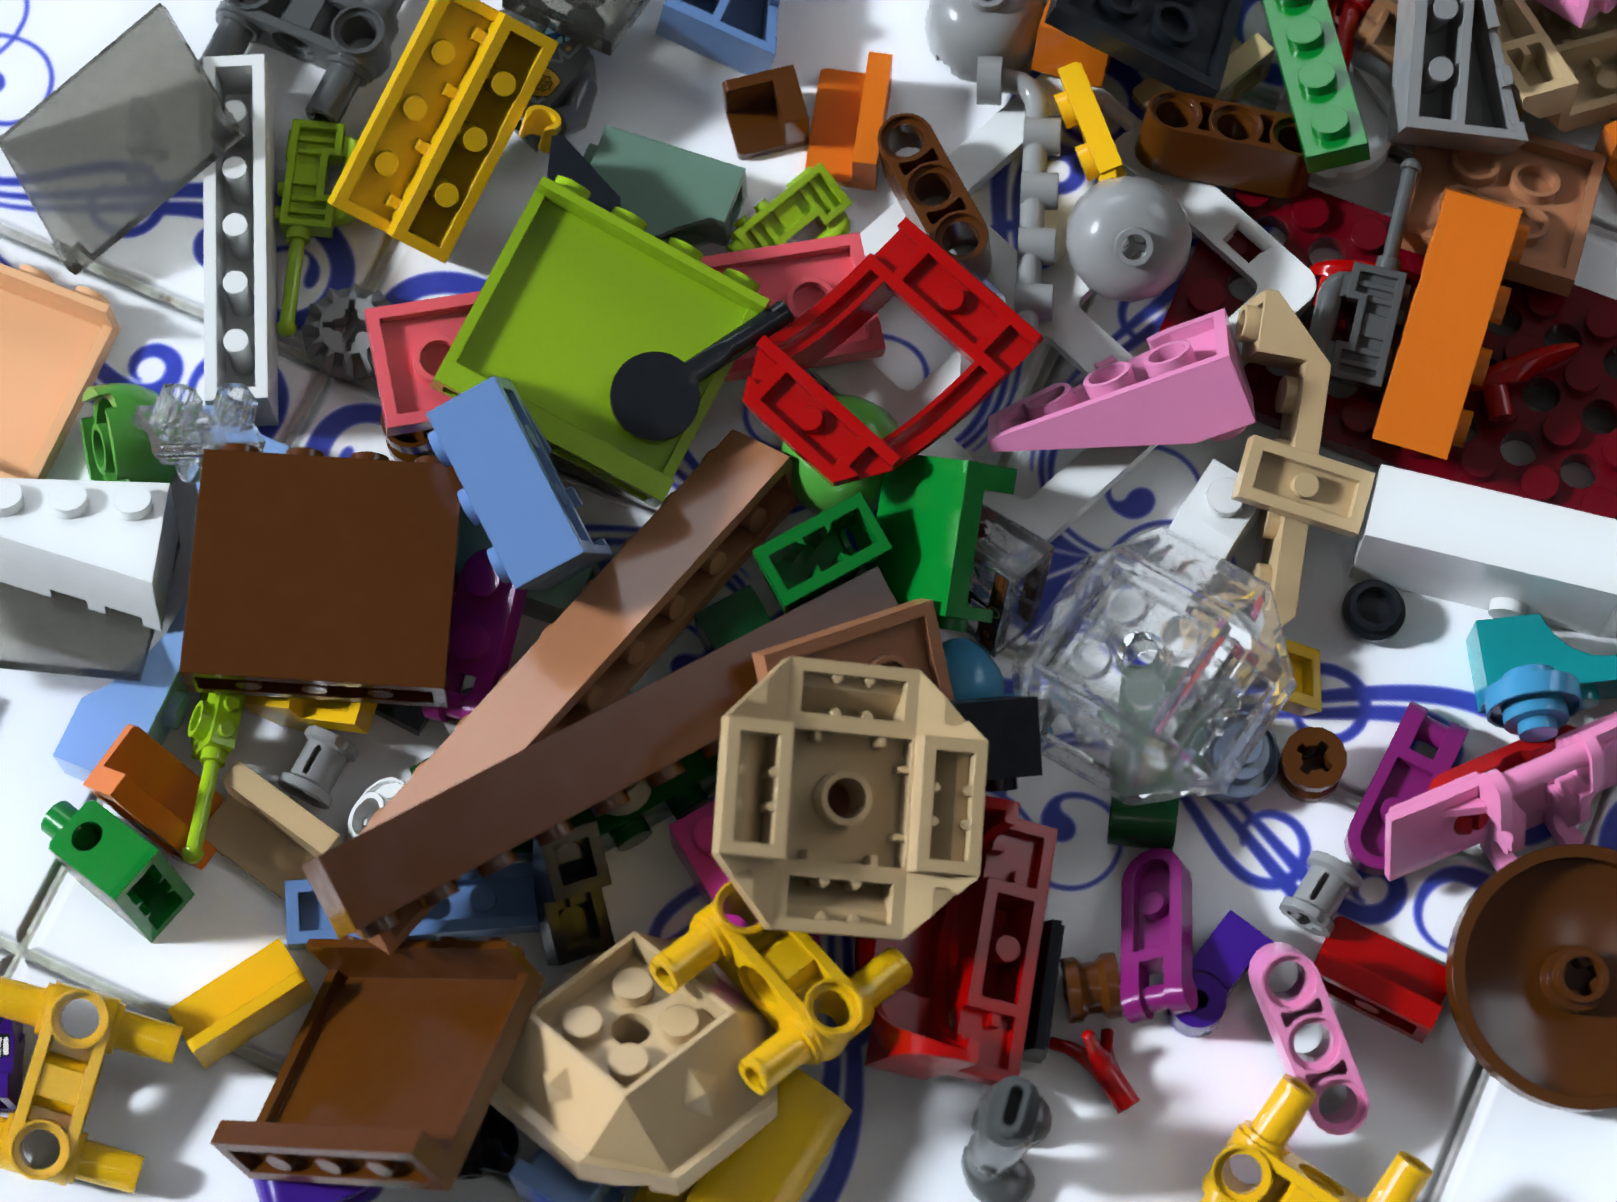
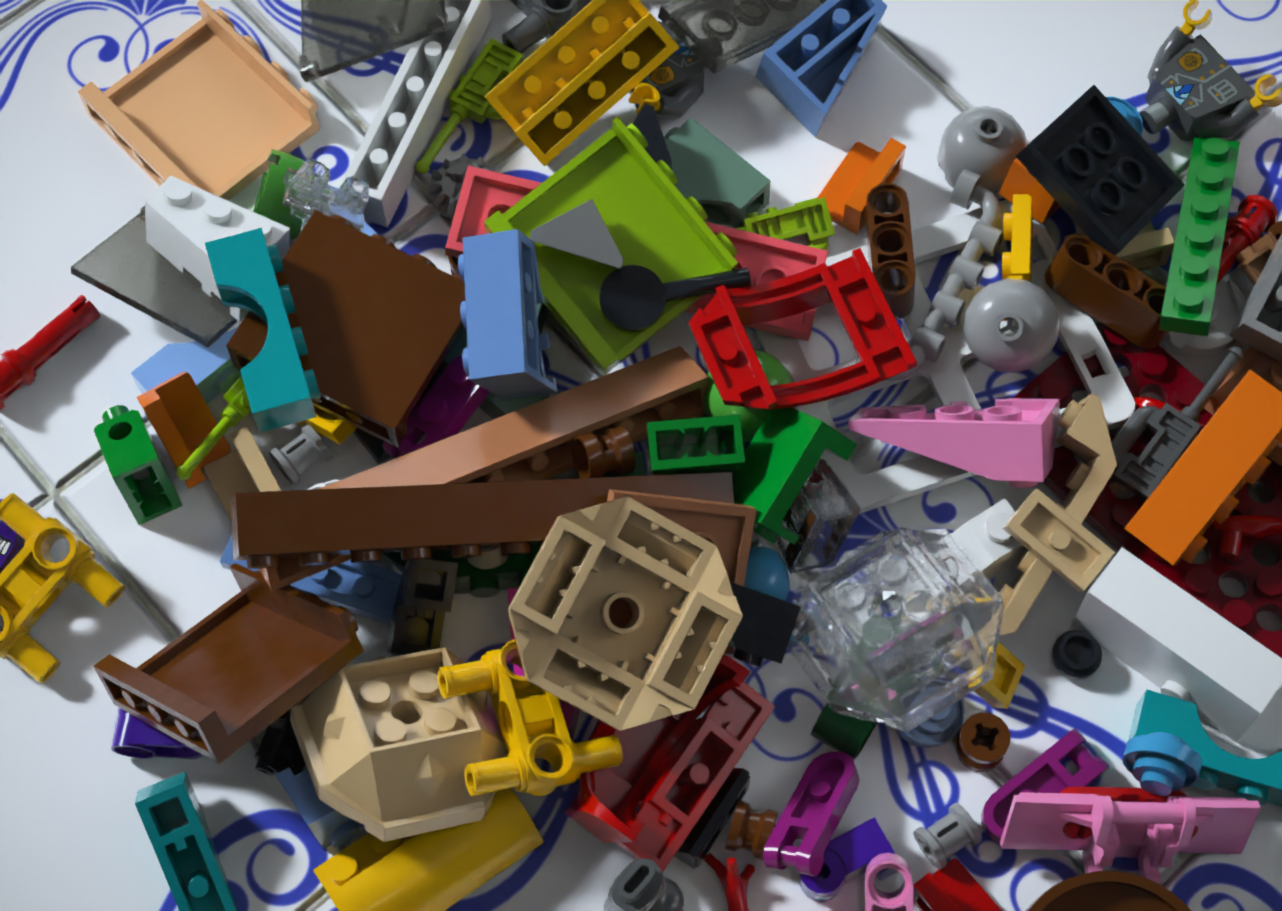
camera: 25 degrees right, 5 degrees down
(170, 575) = (275, 378): none -> teal arch
(242, 1003) = (173, 589): yellow panel -> none
(558, 342) = (580, 233): none -> light grey slope
(711, 609) = (604, 453): none -> reddish brown wheel
(766, 112) = (804, 153): reddish brown panel -> none

